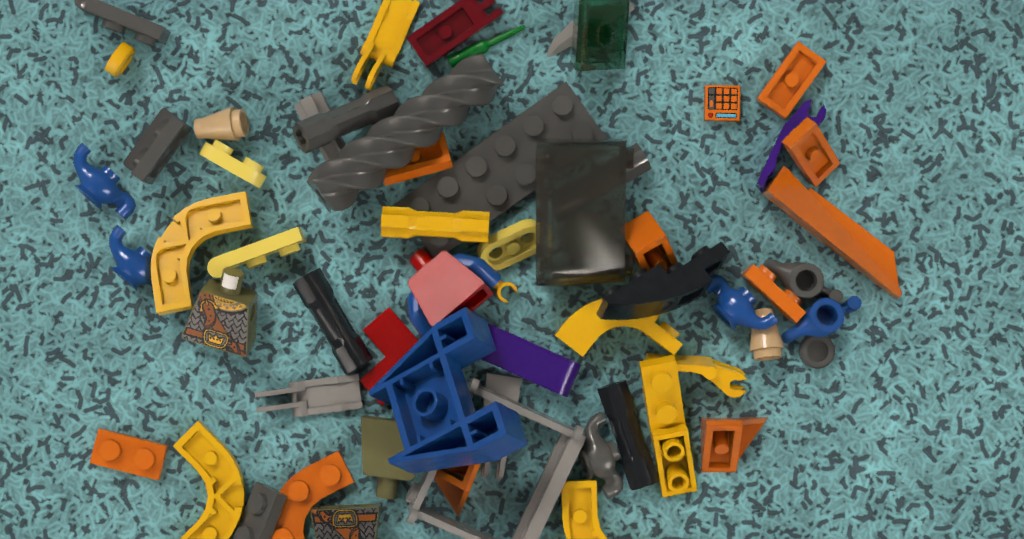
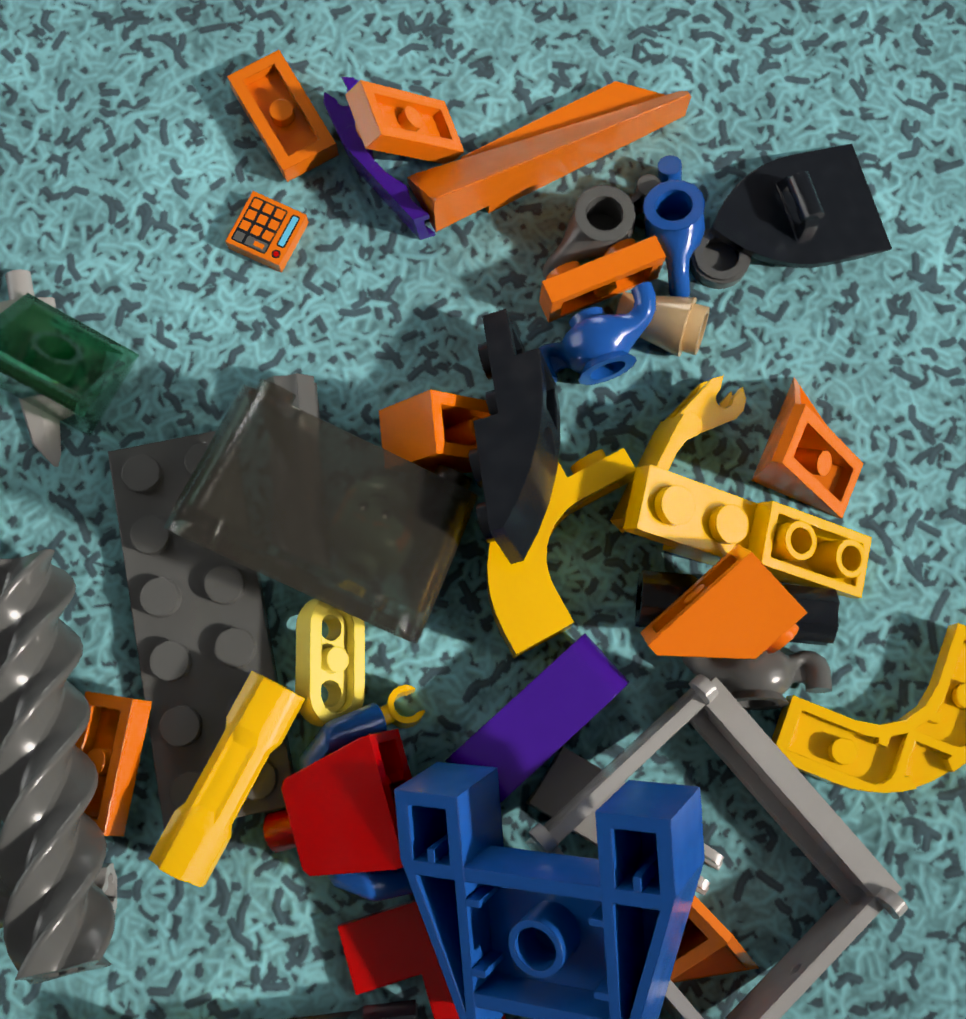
camera: 70 degrees left, 10 degrees down
(619, 429) = (728, 613): none -> orange slope
(864, 385) = (803, 211): none -> black shield

